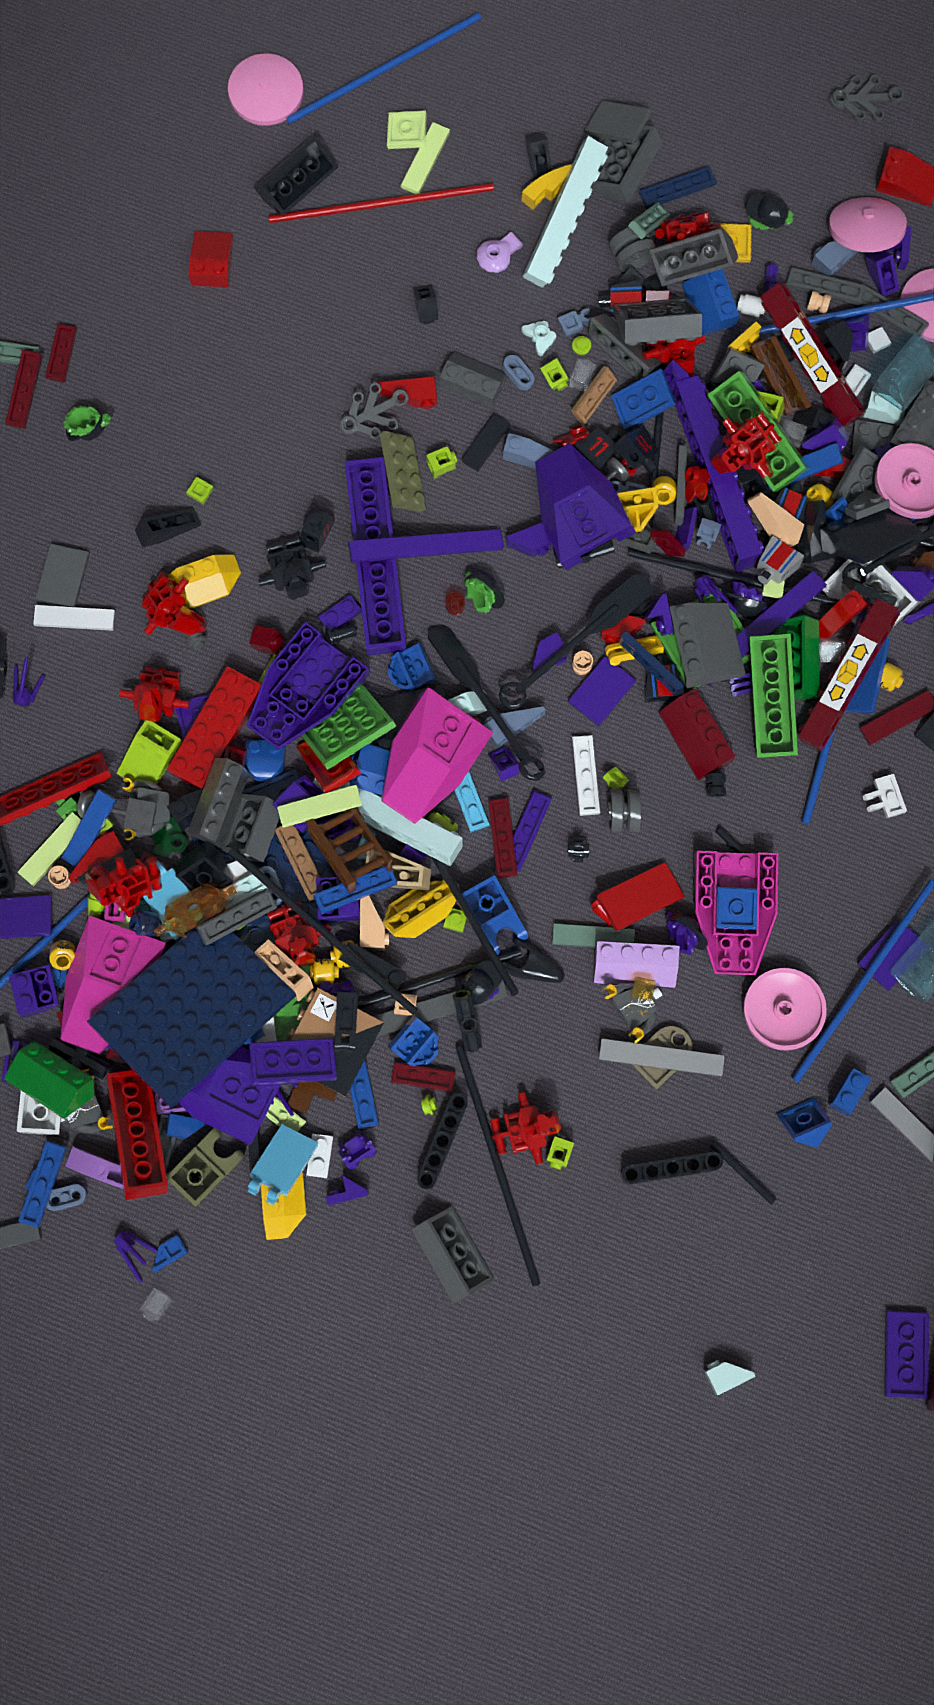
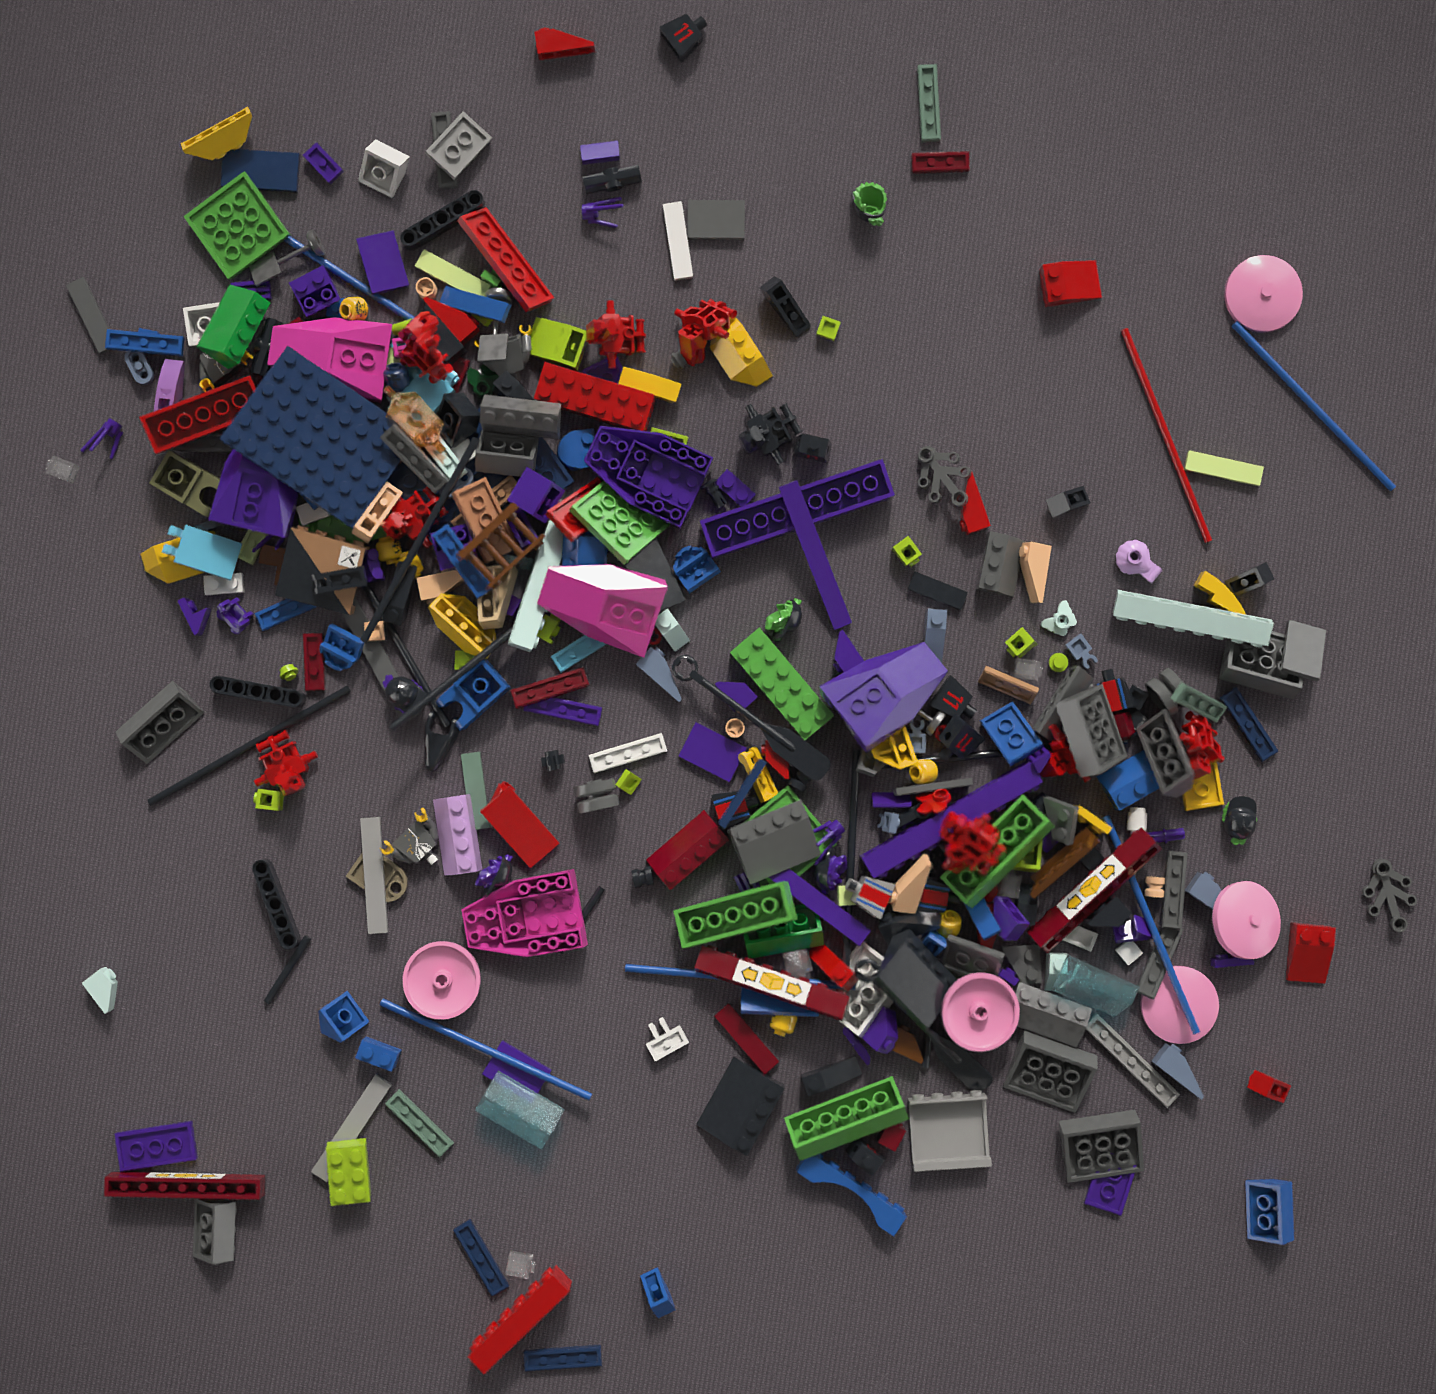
camera: 85 degrees right, 10 degrees up
(23, 389) = (894, 136): dark red tile -> none
(169, 1252) = (111, 470): blue tile -> none
(182, 1126) = (219, 453): blue tile -> none
(223, 656) = (661, 387): none -> yellow slope
(236, 754) = (570, 422): dark red plate -> none
(266, 640) = (691, 425): dark red brick -> none
(292, 1061) = (290, 539): dark purple tile -> none
(296, 176) = (1173, 345): black slope -> none
(308, 863) = (478, 510): none -> nougat tile
(319, 806) = (532, 510): yellowish green tile -> none
(402, 471) = (887, 516): olive plate -> none
(406, 129) = (1249, 443): yellowish green tile -> none
(457, 600) = (770, 598): clear red wheel -> none
(465, 1011) = (367, 690): black piece -> none
(467, 673) = (701, 618): black piece -> none
(485, 346) = (1034, 566): none -> light nougat slope
(504, 763) = (621, 674): dark purple slope -> none
(520, 372) = (1017, 609): sand blue plate -> none
(547, 608) = (781, 684): none -> bright green brick
(576, 433) = (963, 677): red plate -> none
(643, 989) = (431, 846): clear yellow tile -> none
(661, 610) = (796, 791): dark purple slope -> none
(668, 543) = (869, 786): dark red plate -> none
(736, 908) = (524, 917): blue tile -> none
(866, 504) = (944, 969): dark grey wing -> none
(869, 590) = (855, 988): black tile -> none
(883, 272) = (1199, 945): dark purple slope -> none

